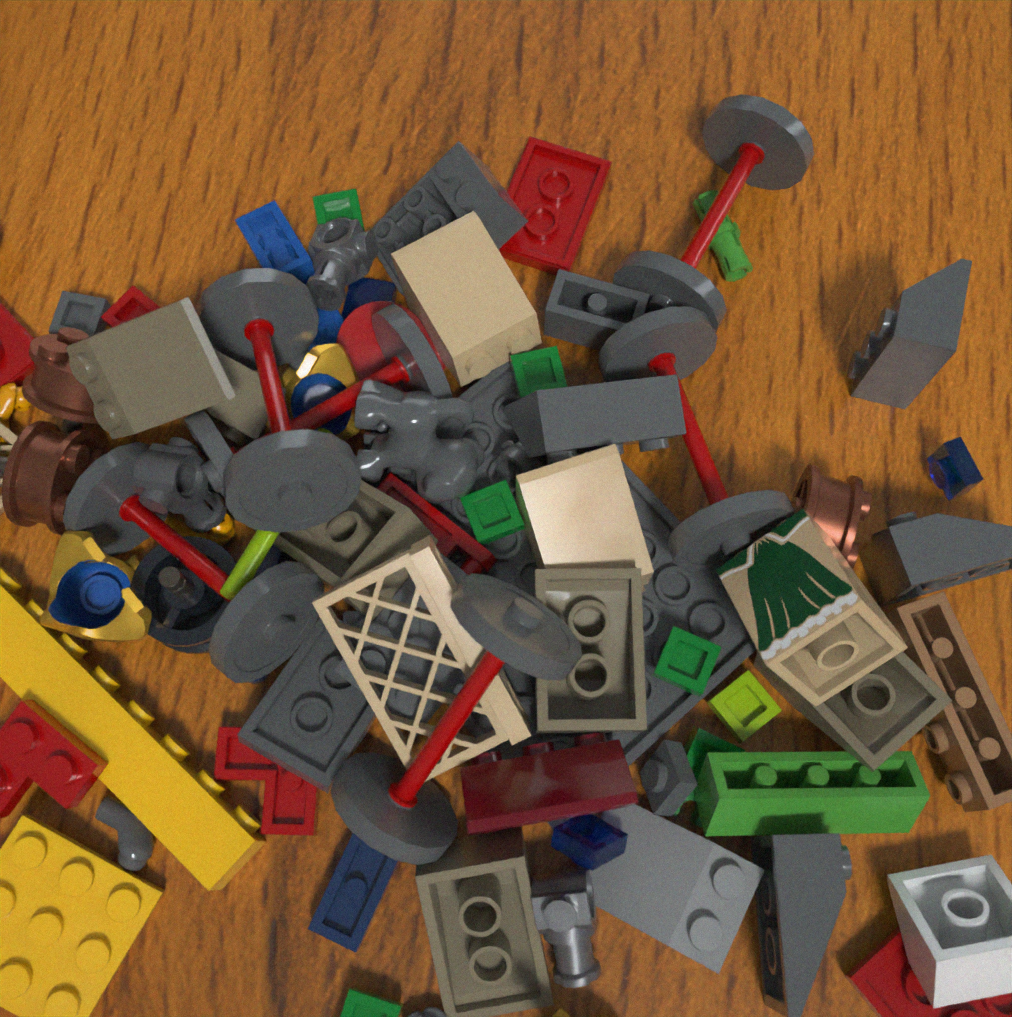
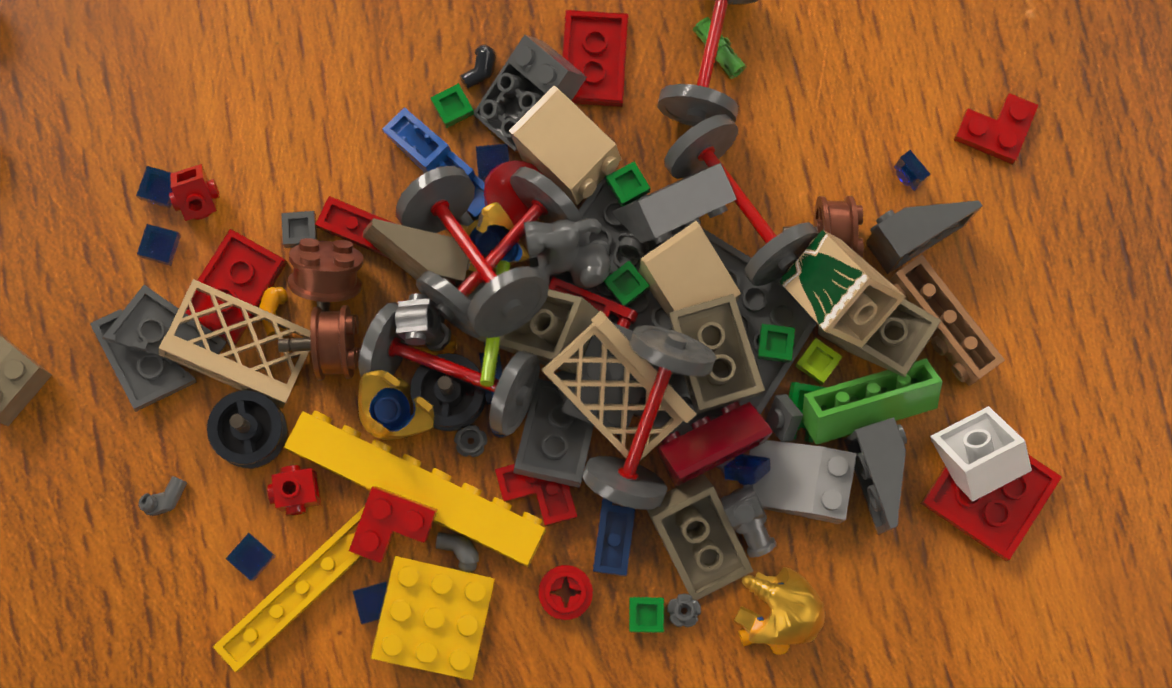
camera: 20 degrees left, 5 degrees up
(150, 370) = (387, 255): dark tan slope -> none
(190, 680) = (466, 433): none -> dark grey plate
(236, 960) = (577, 581): none -> red gear
(339, 257) = (466, 136): flat silver connector -> none
(397, 179) = (483, 67): none -> black arm
(590, 309) = (650, 129): dark grey brick -> none
(912, 339) = (862, 96): dark grey slope -> none

